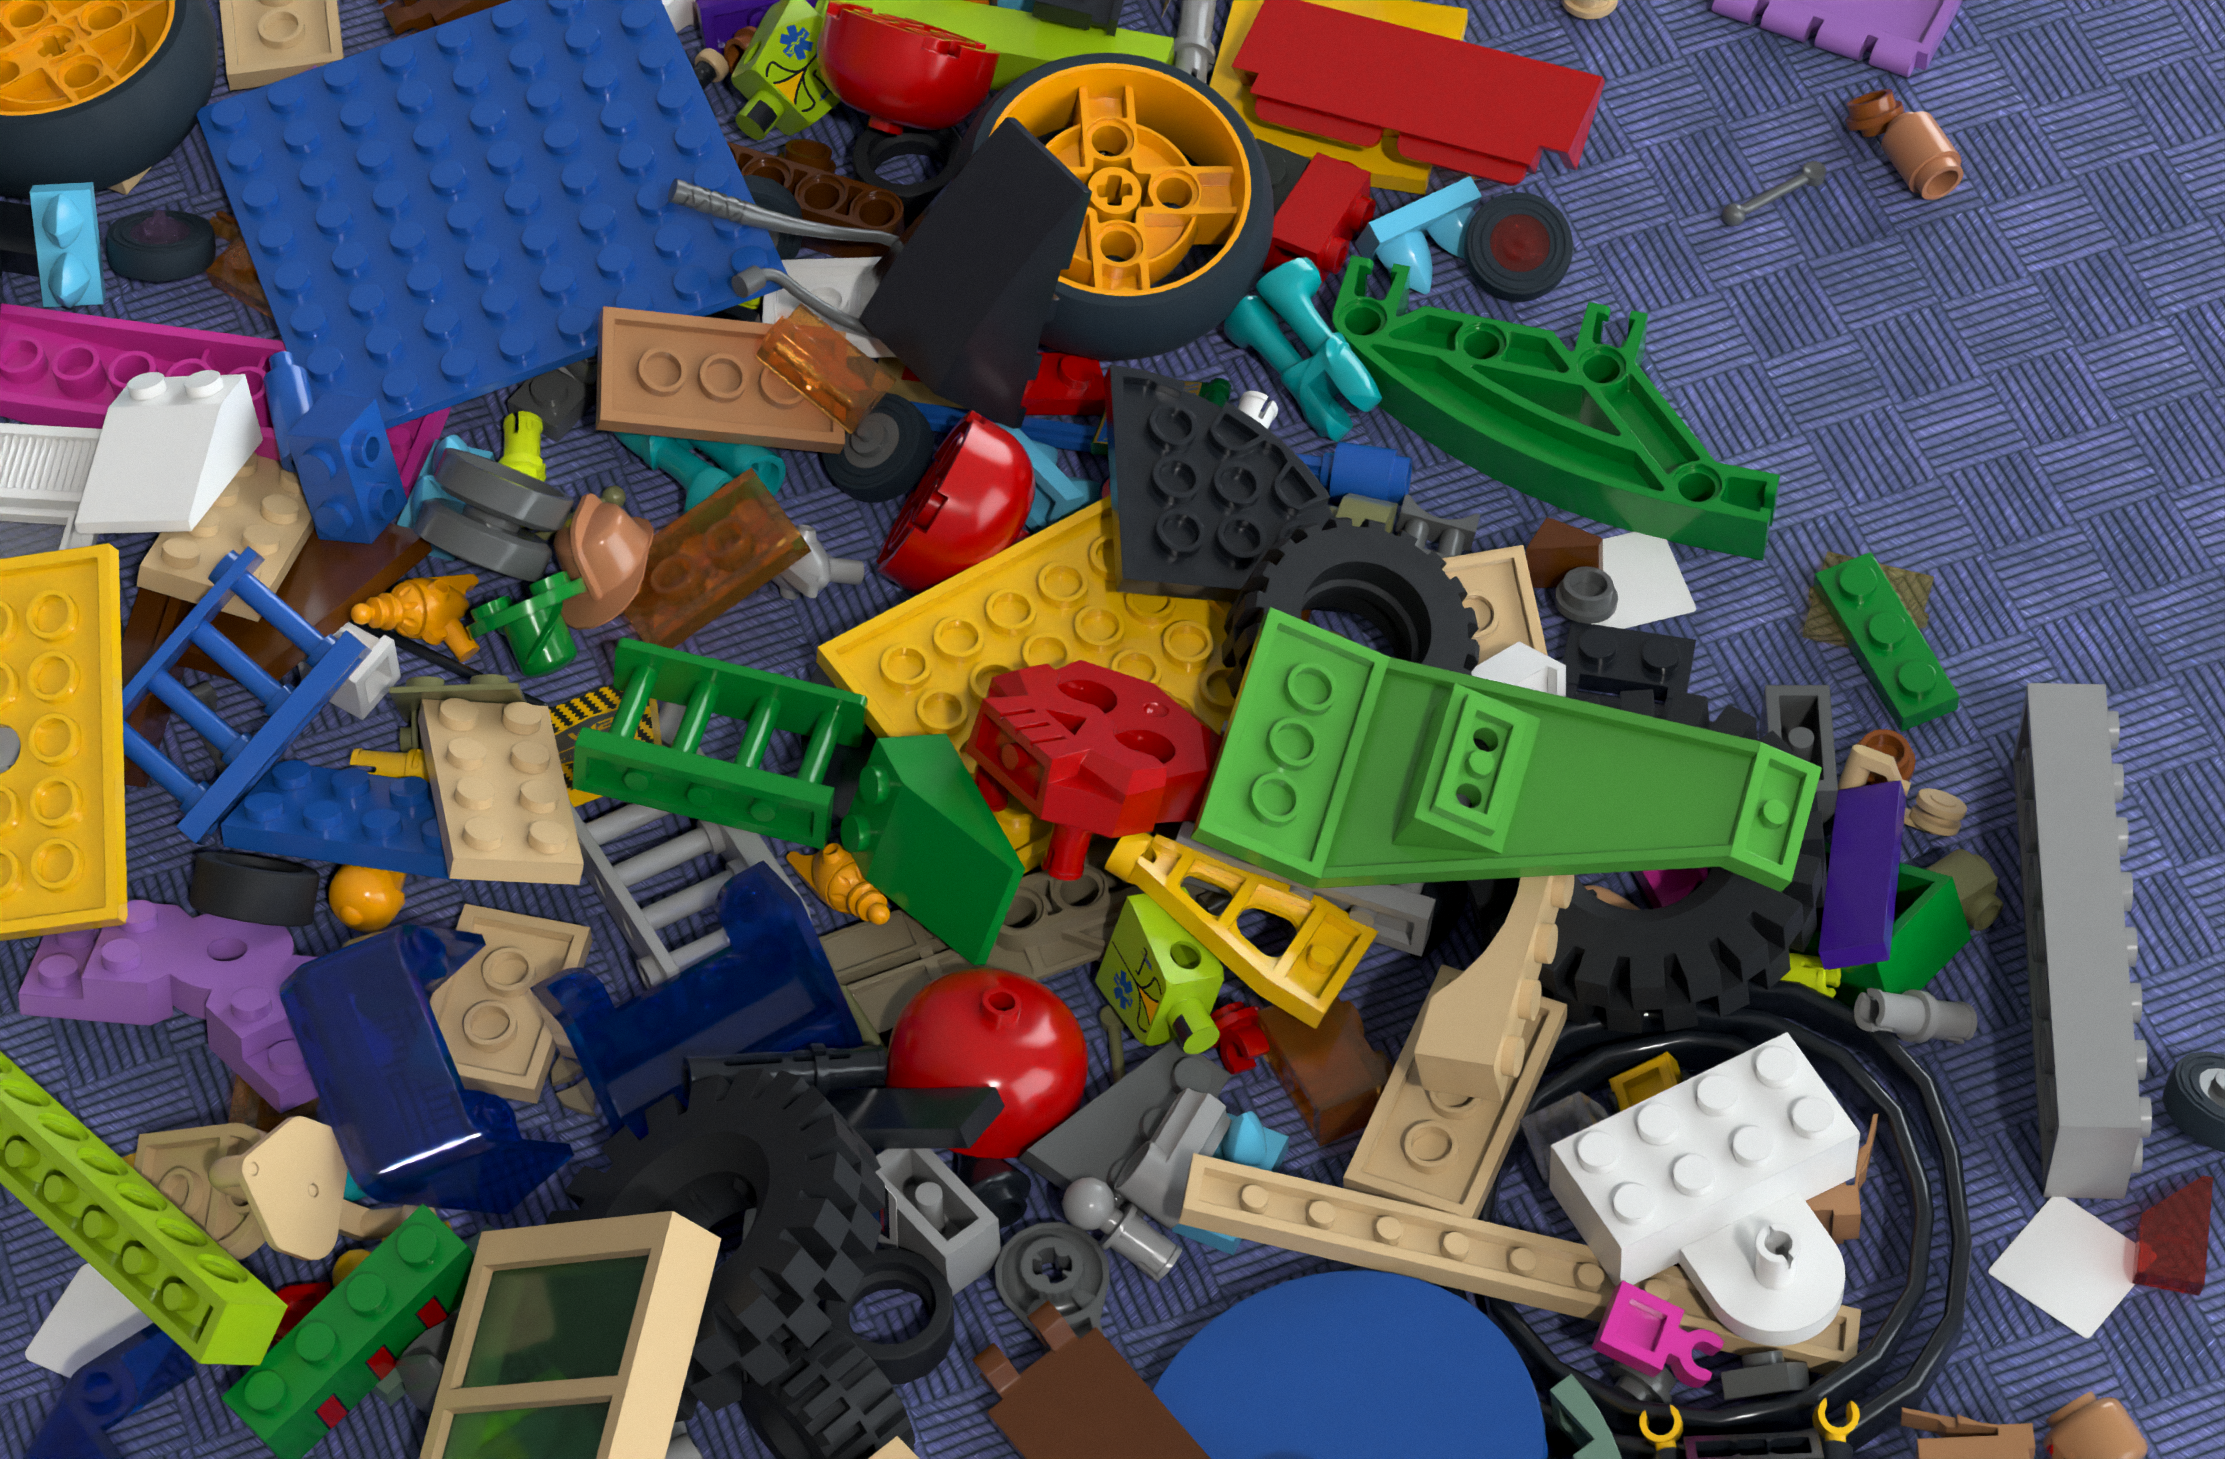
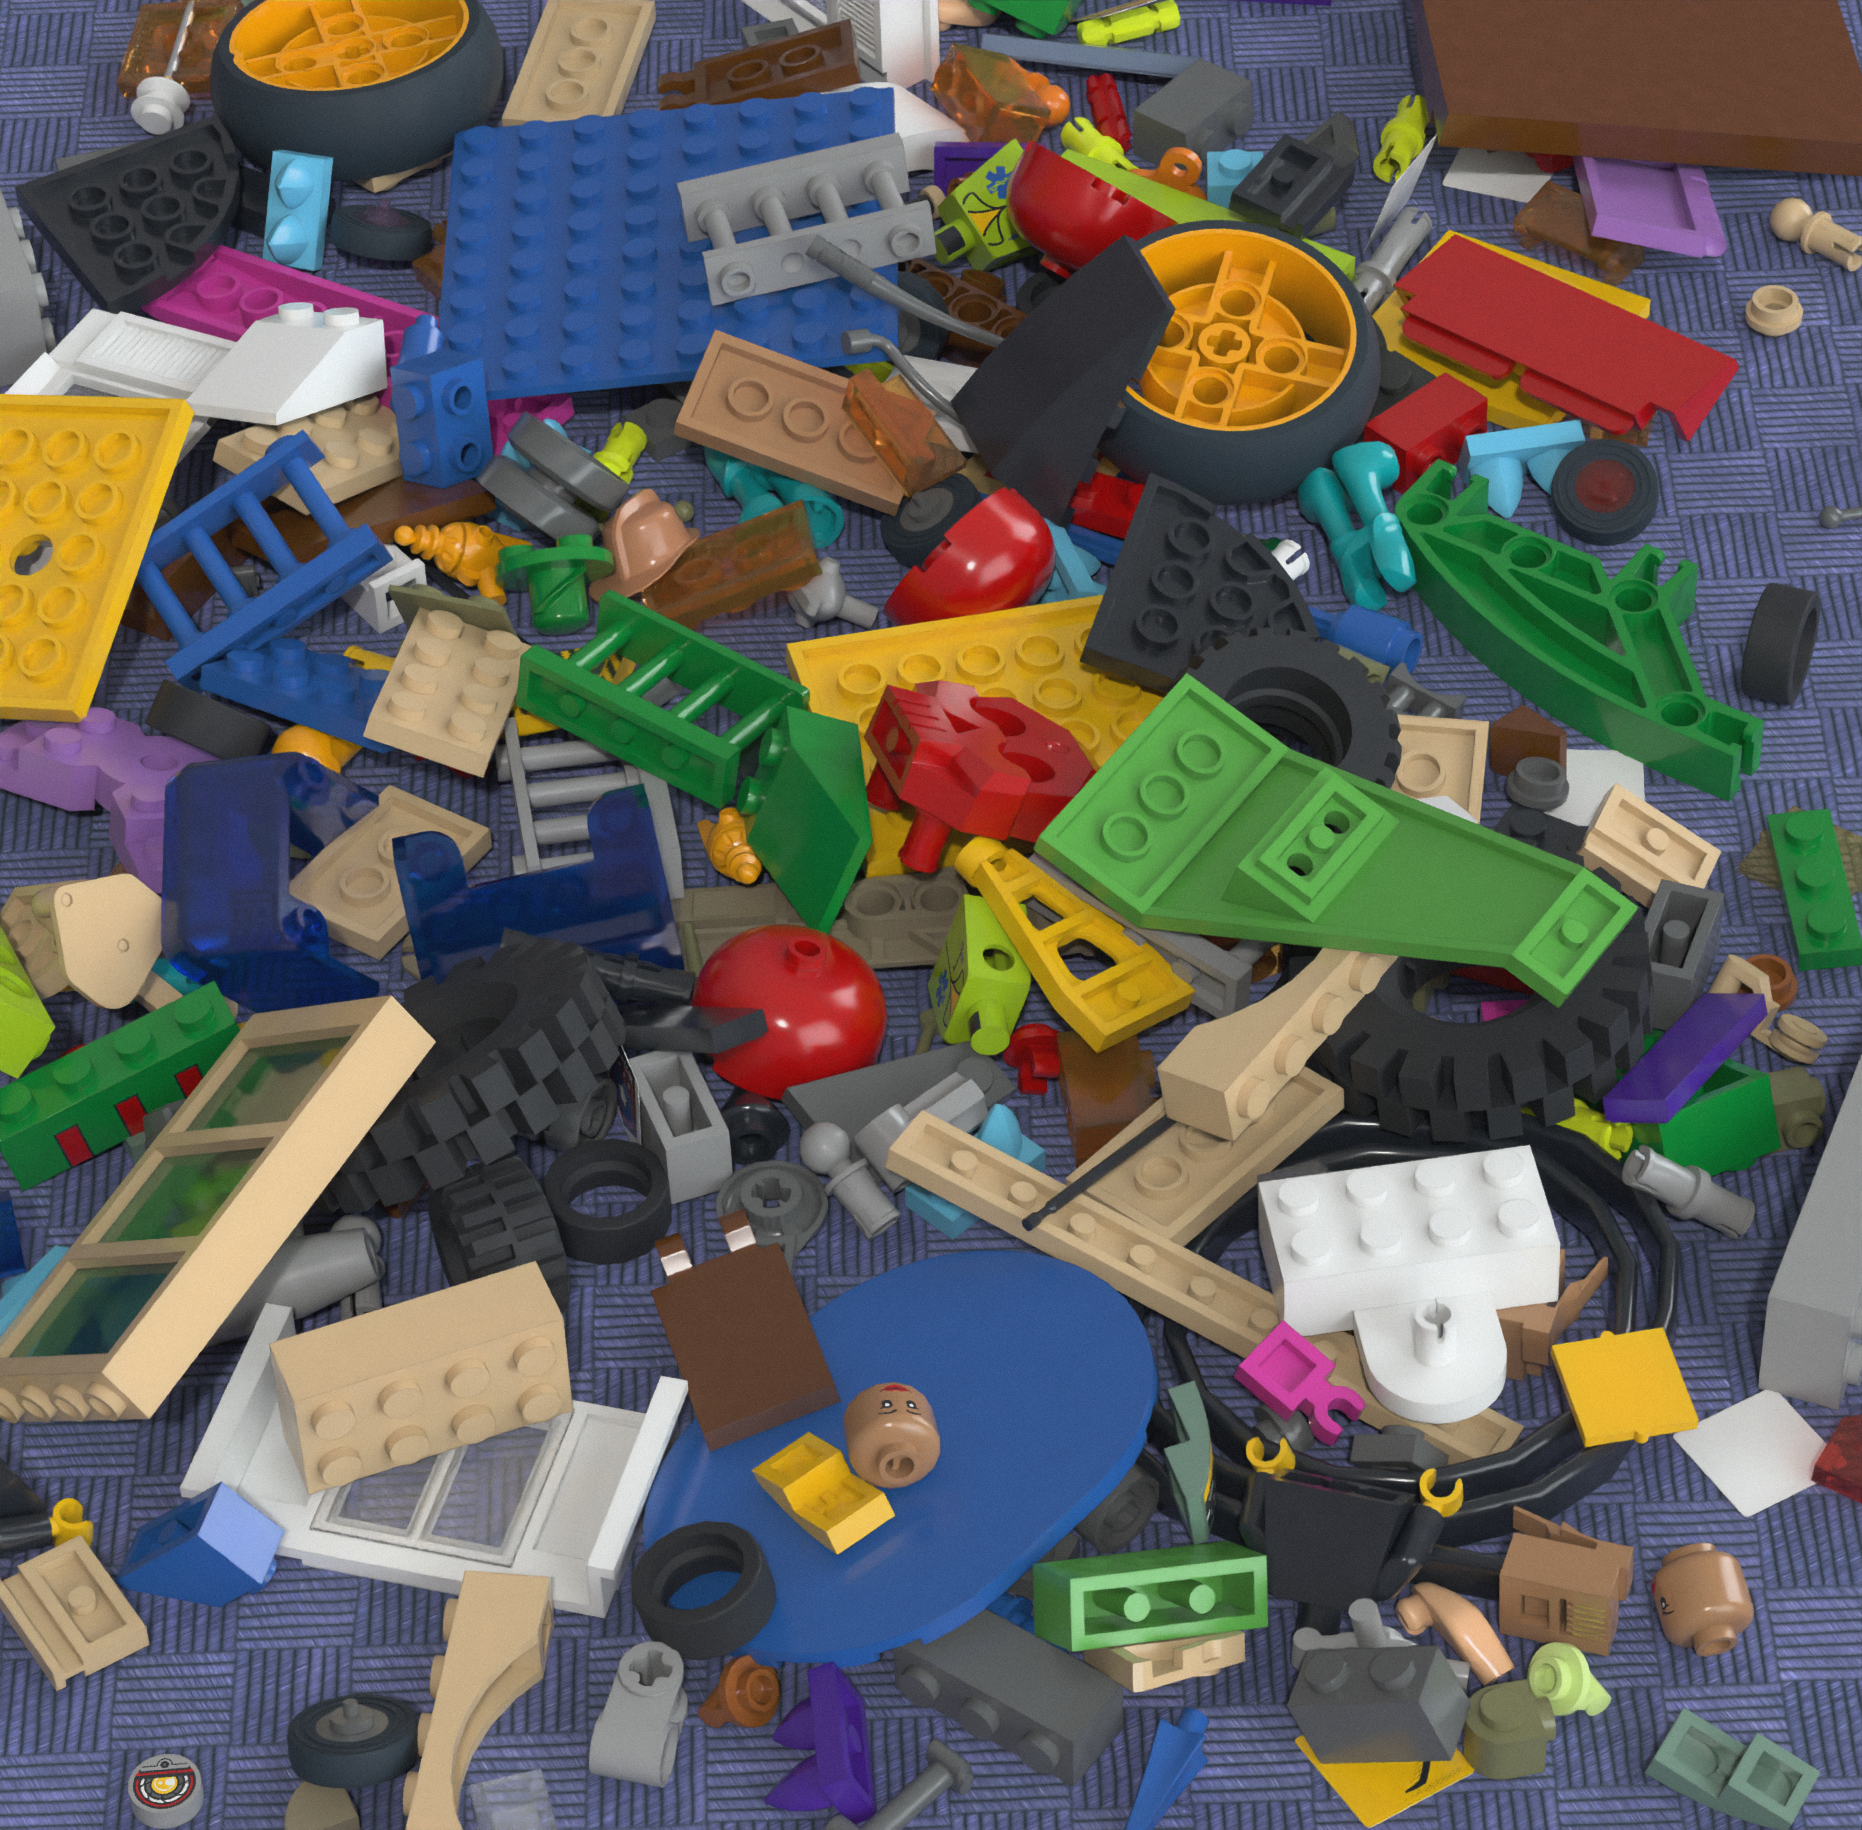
camera: 20 degrees right, 10 degrees down
(616, 109) = (797, 188): none -> light grey fence
(1383, 1168) = (1098, 1171): none -> black piece
(1723, 648) = (1644, 846): none -> tan plate
(1759, 381) = (1780, 643): none -> black tyre
(1951, 1251) = (1624, 1387): none -> yellow piece

